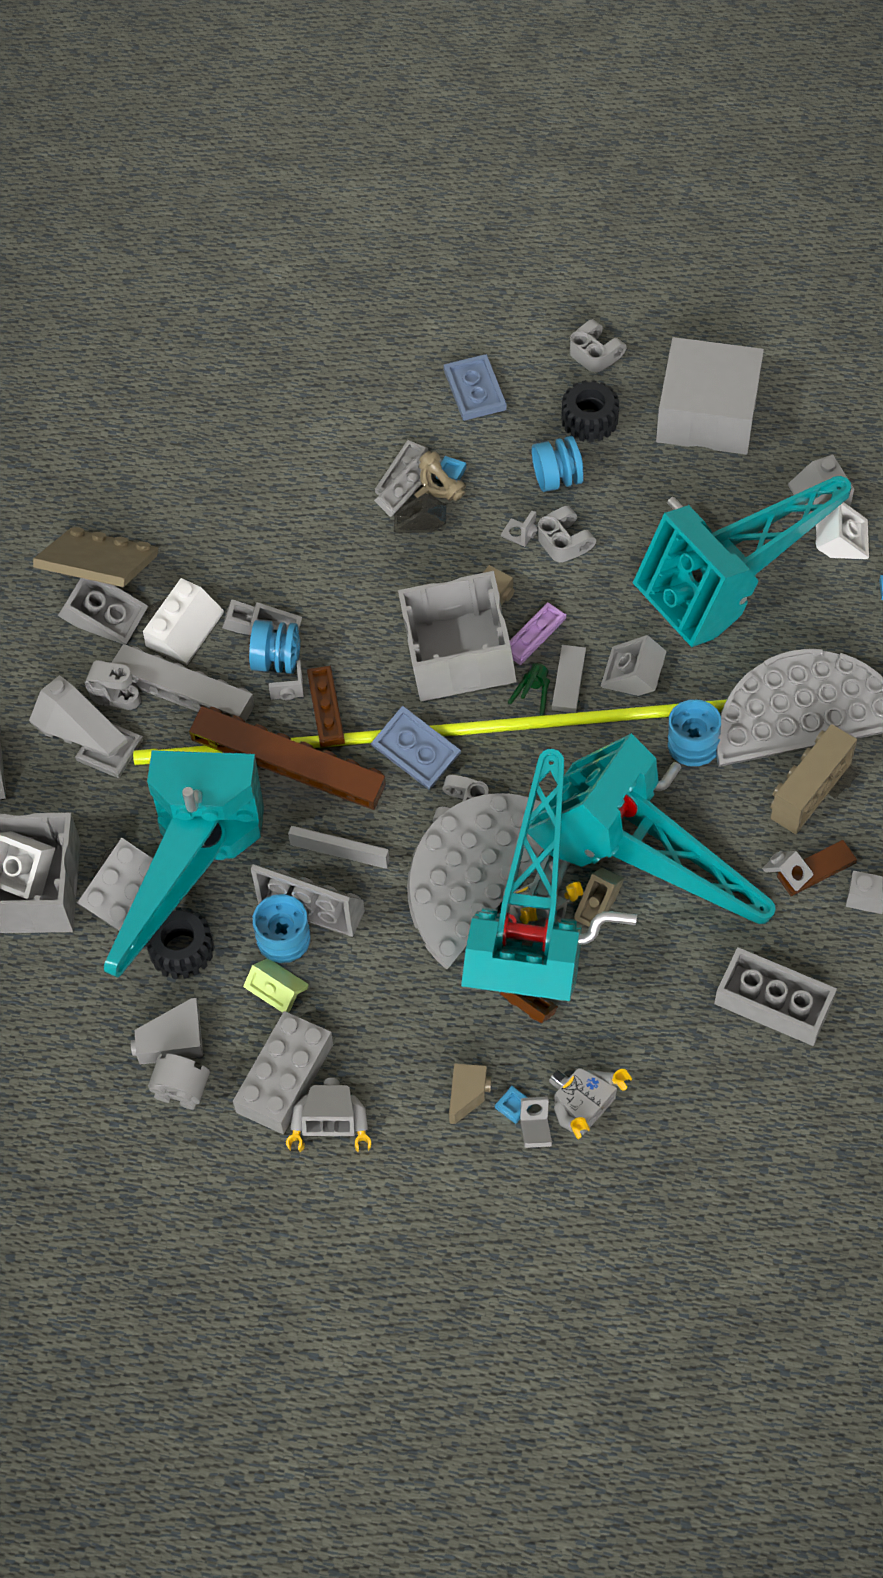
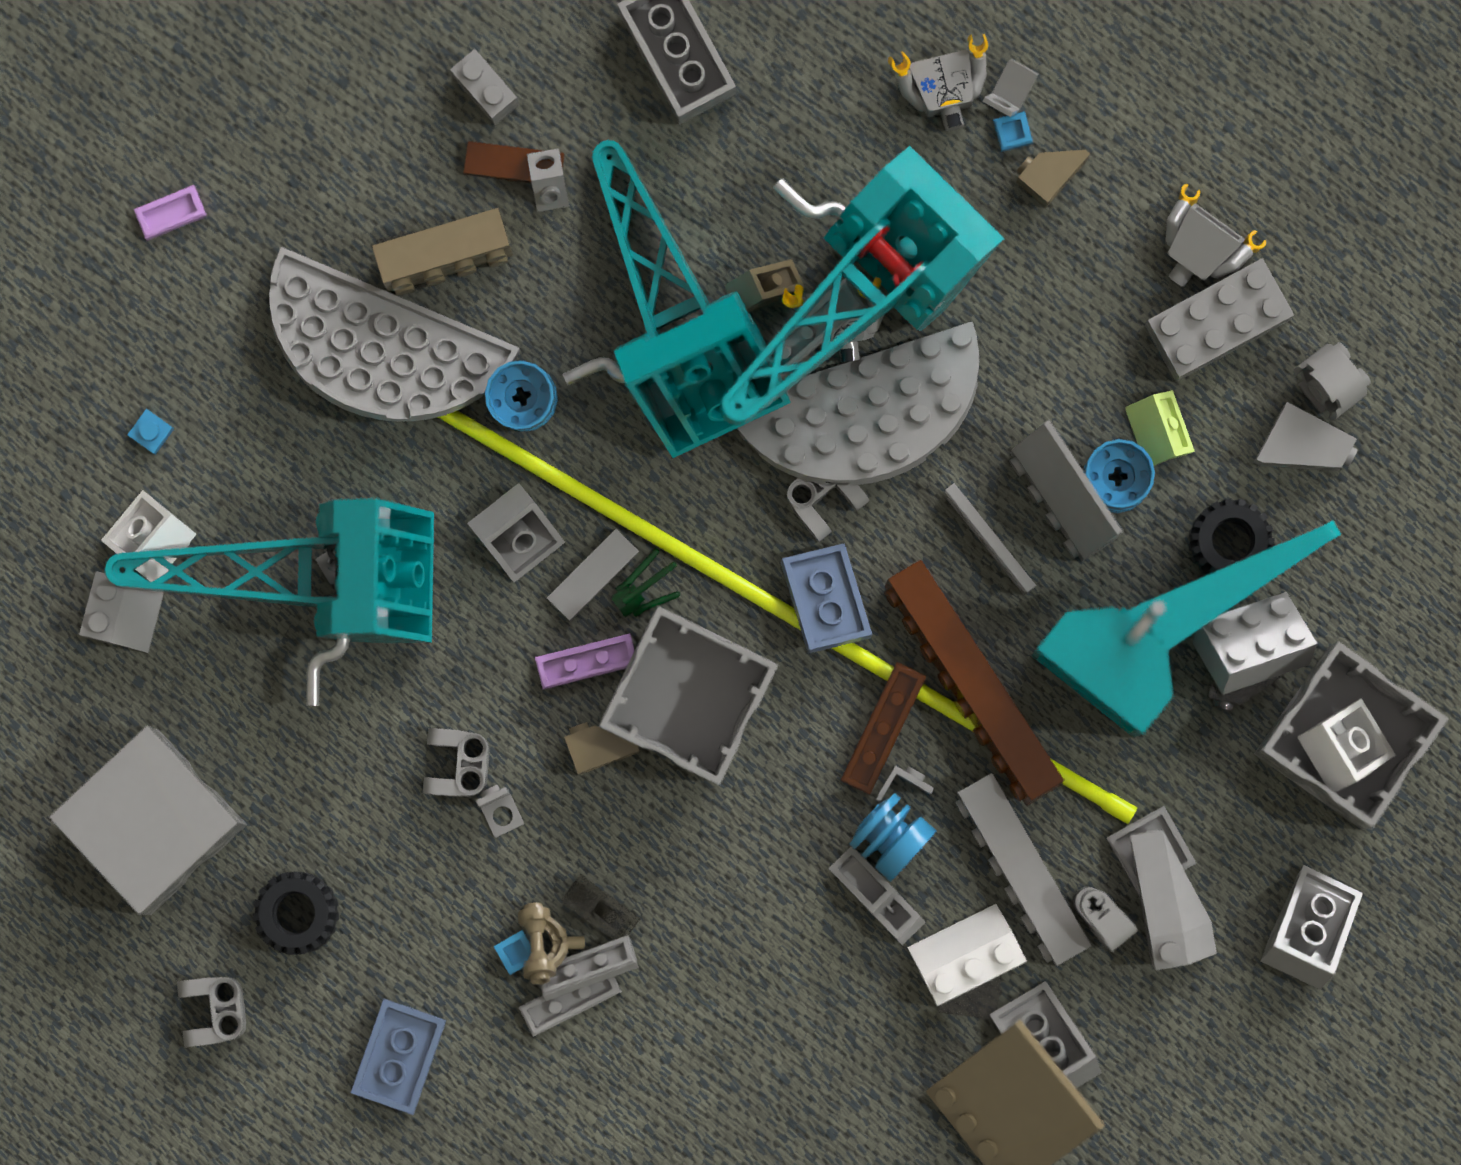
camera: 140 degrees left, 25 degrees up
(562, 463) = (395, 857): dark azure wheel -> none

